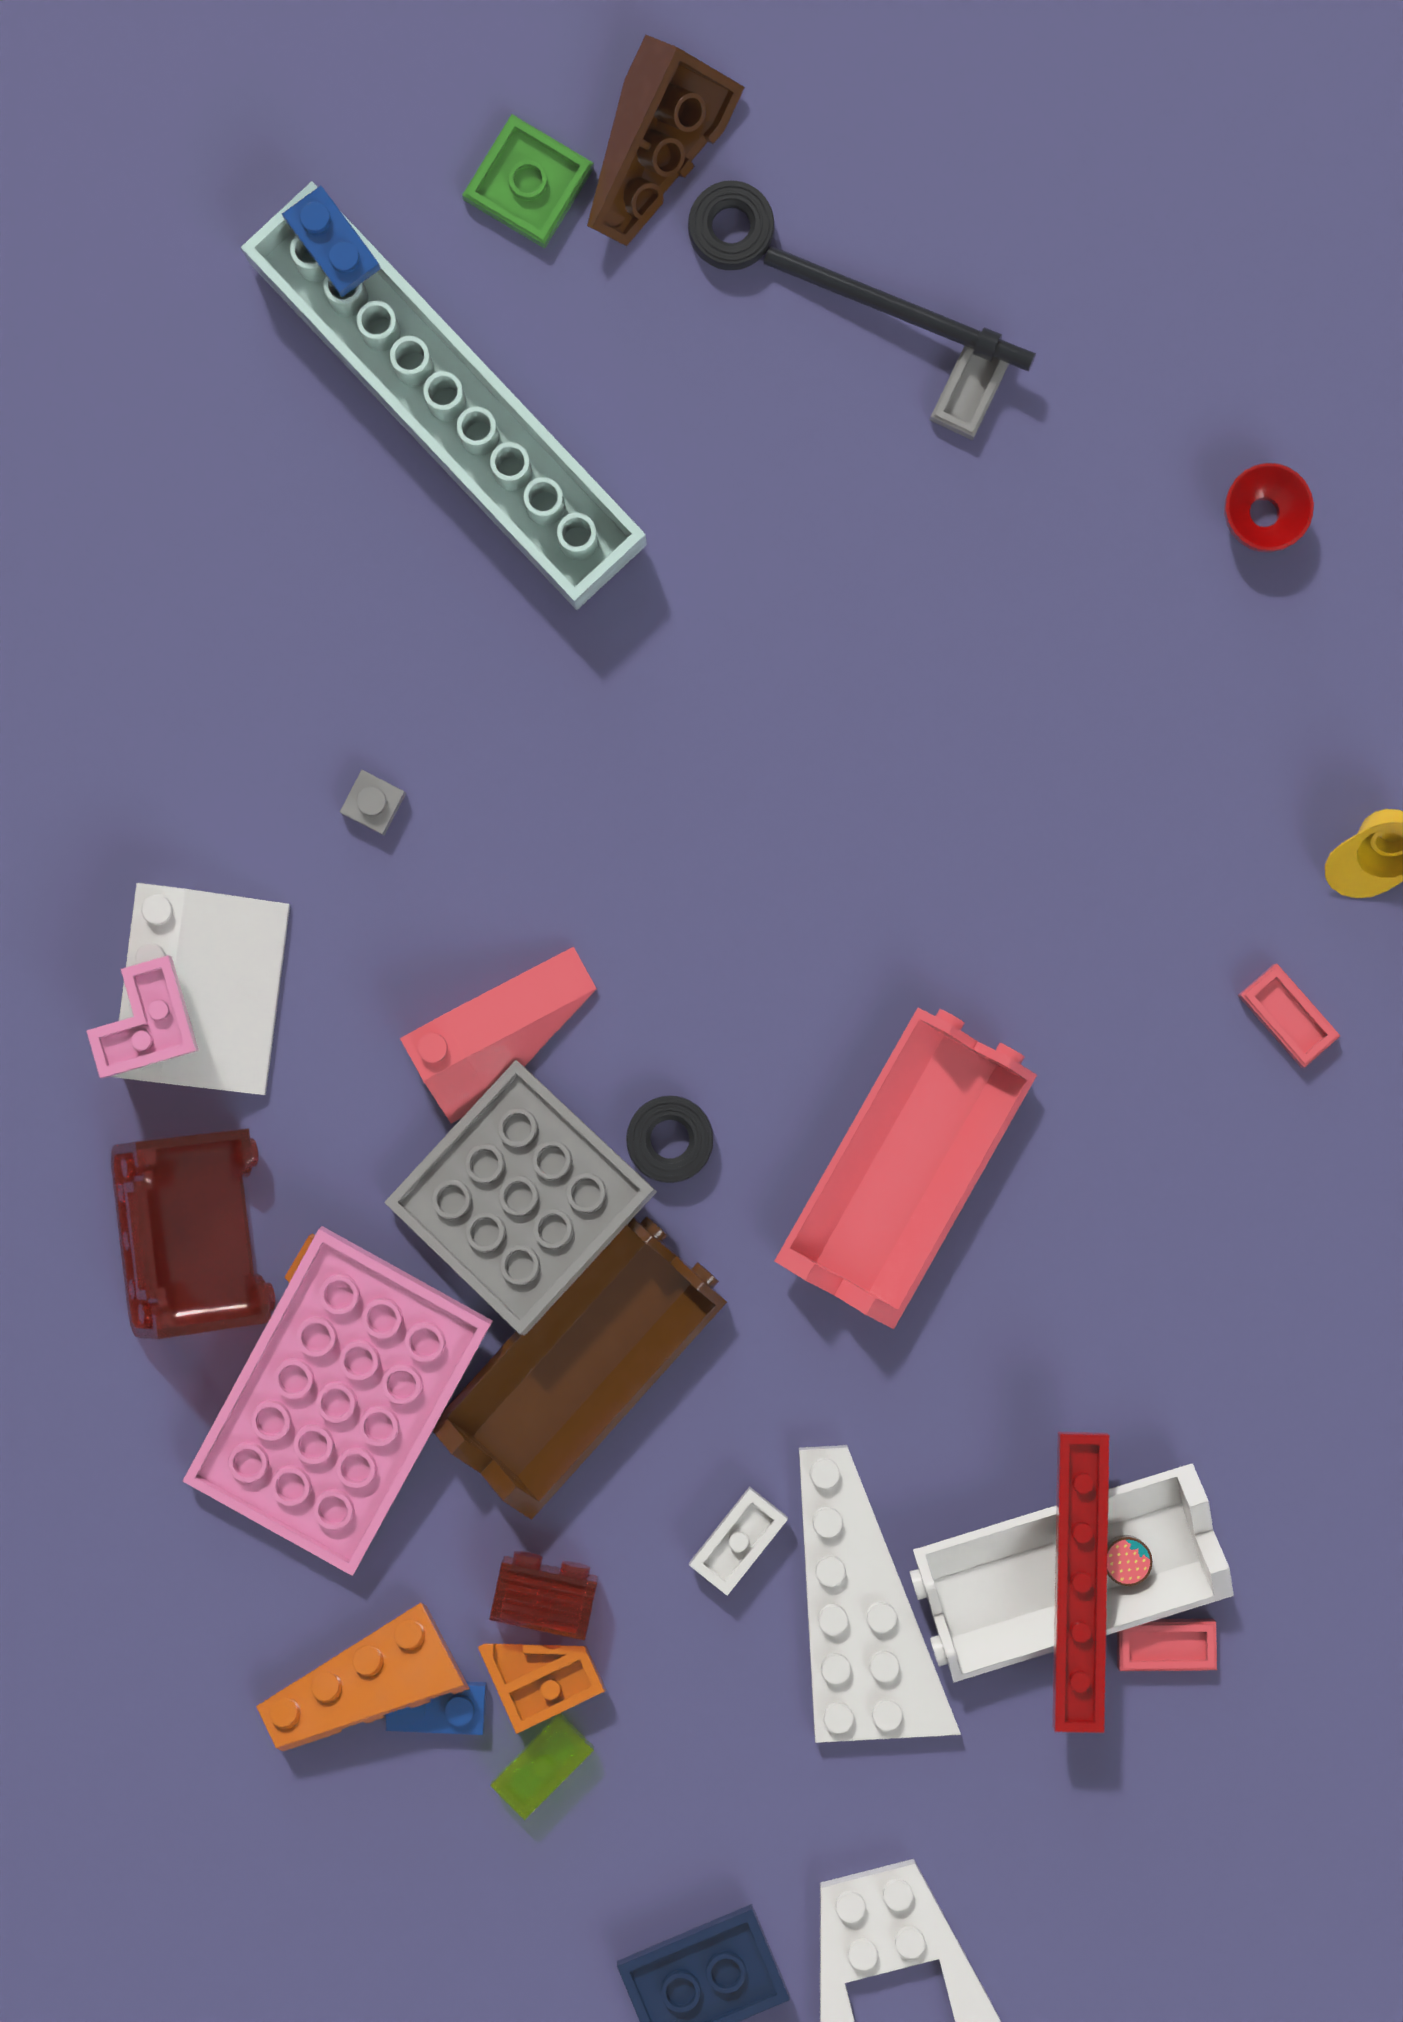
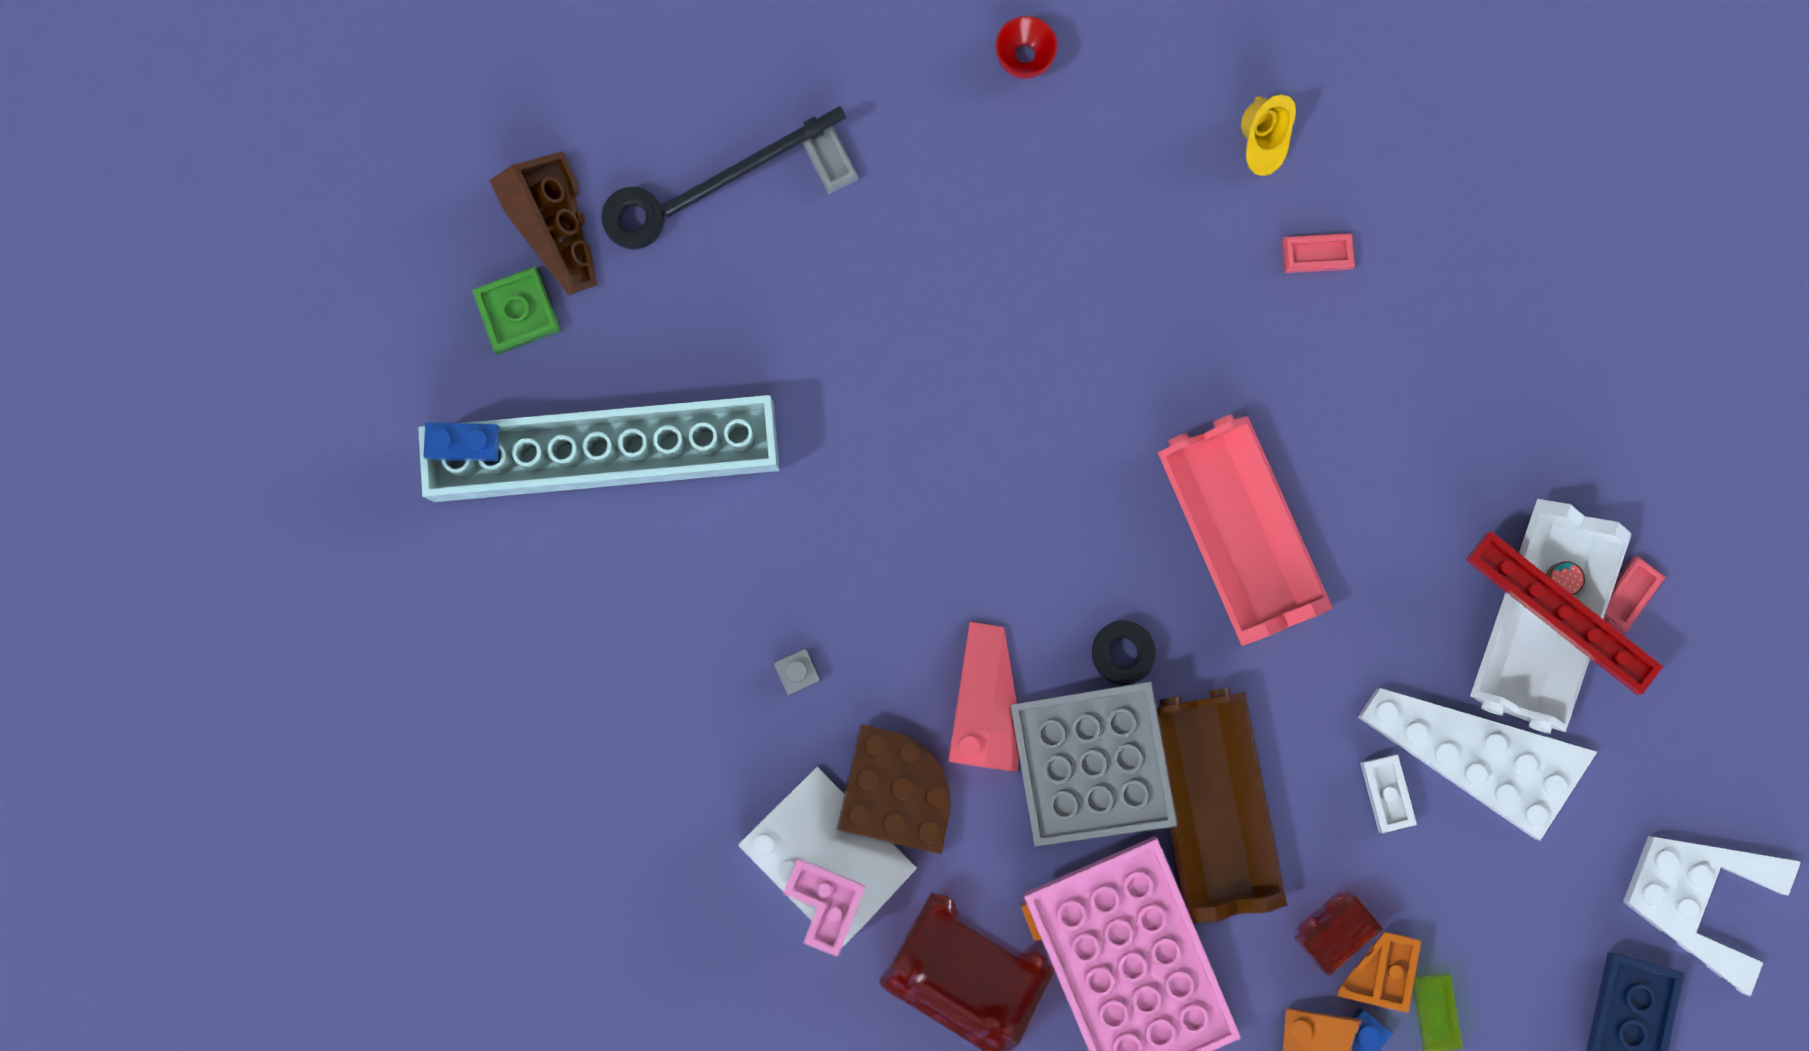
camera: 50 degrees left, 5 degrees down
(326, 1008) = (895, 792): none -> reddish brown plate

